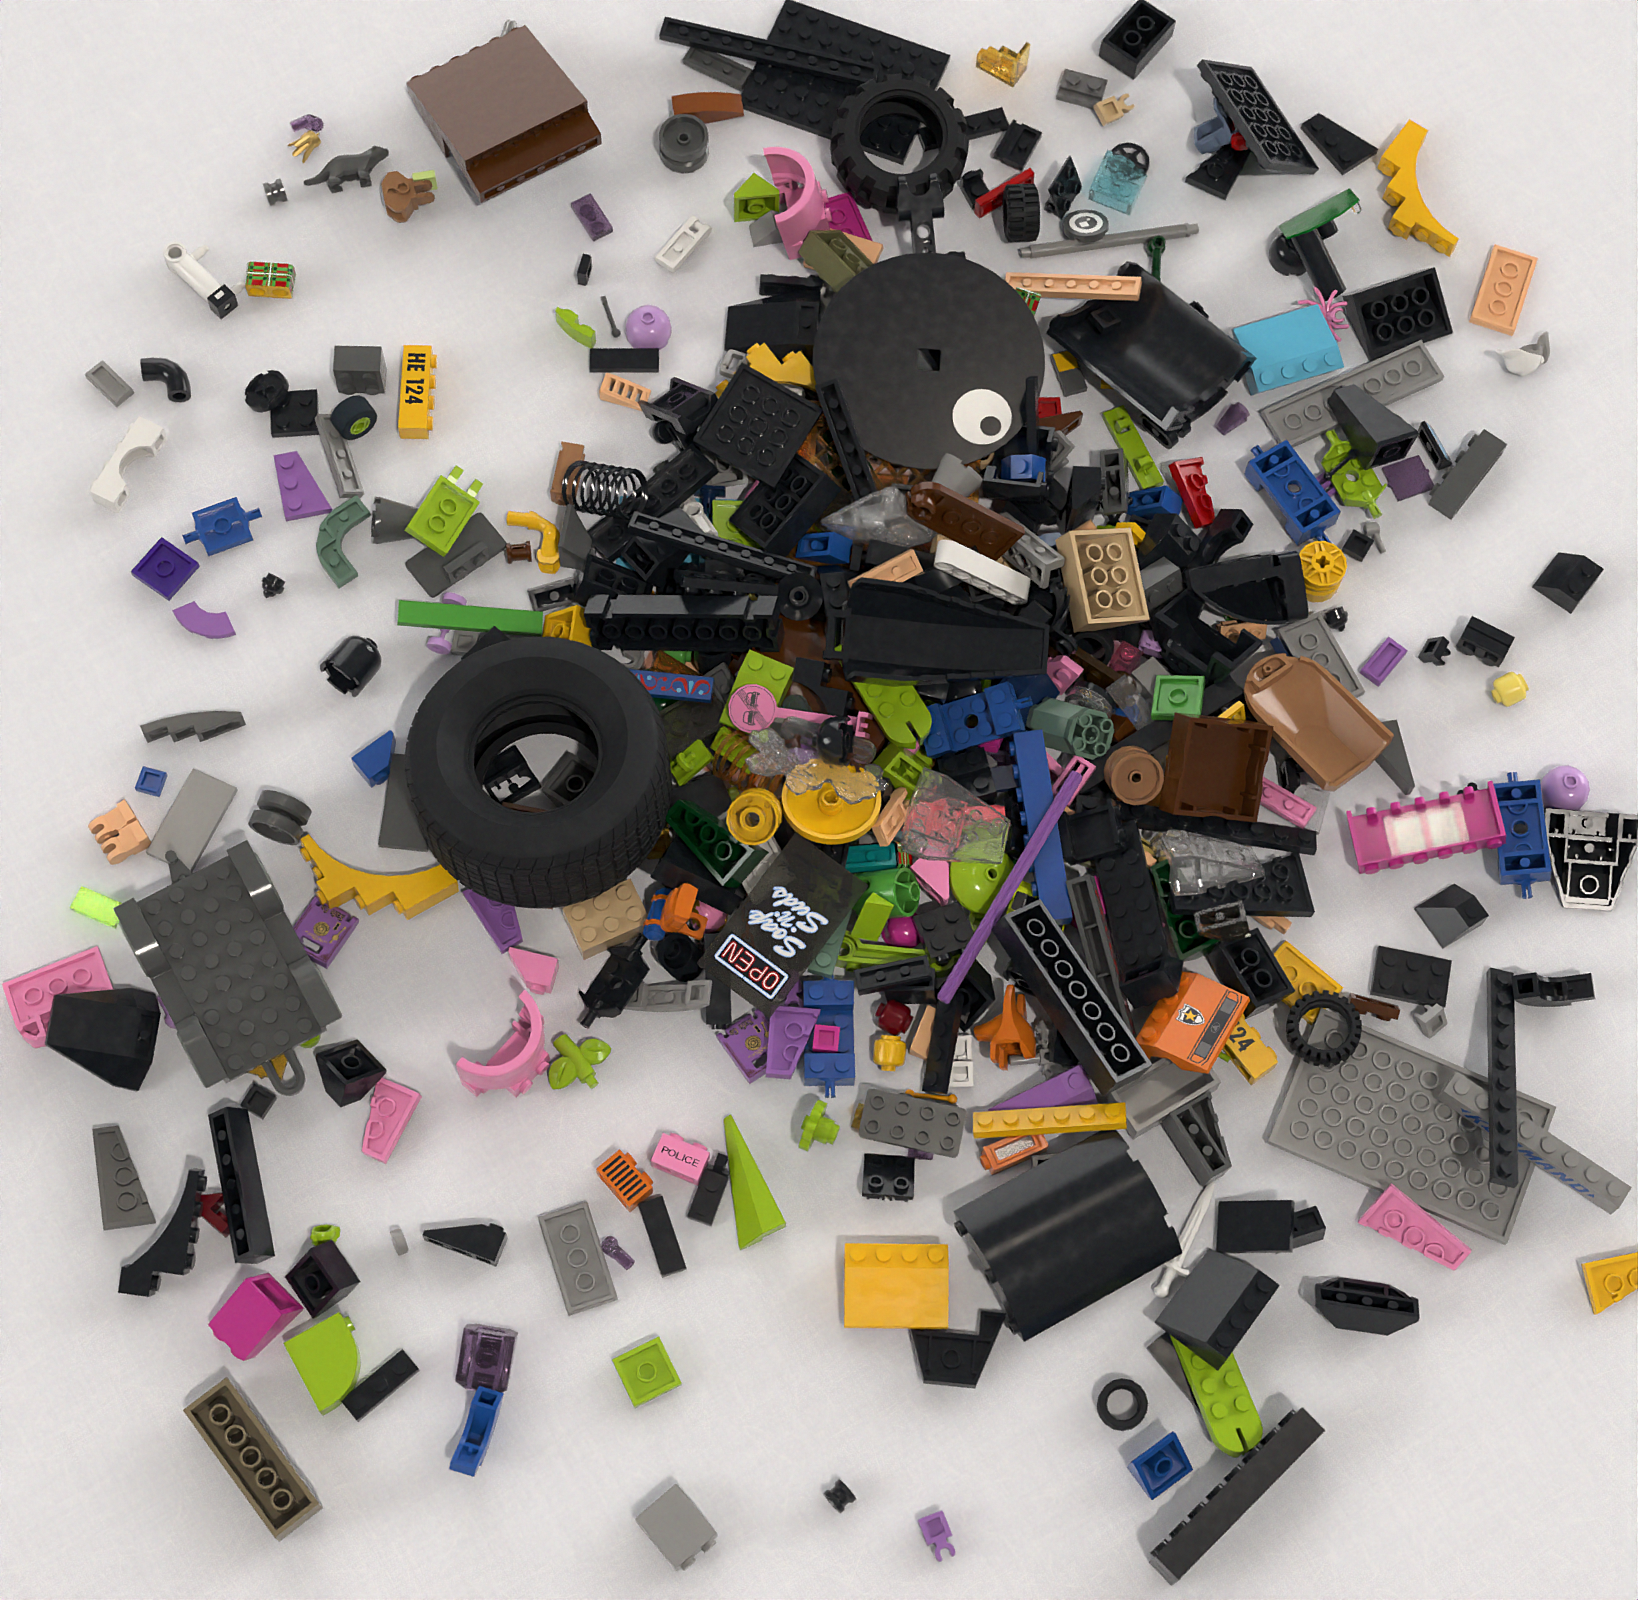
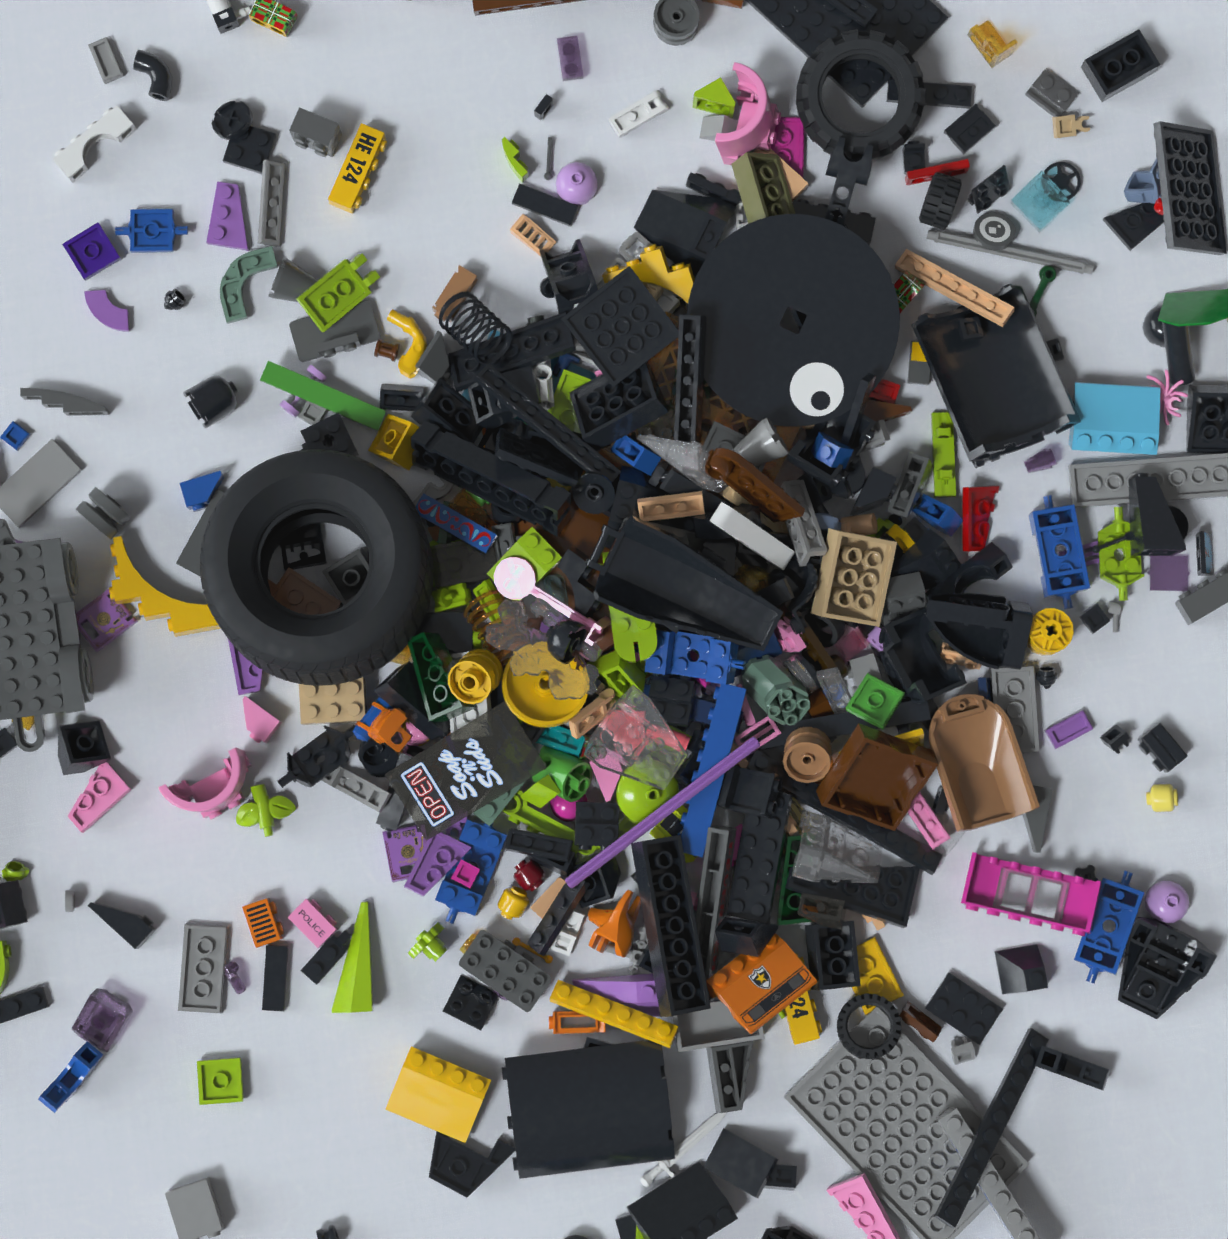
camera: 25 degrees right, 15 degrees up
(354, 417) = (294, 174): black wheel -> none

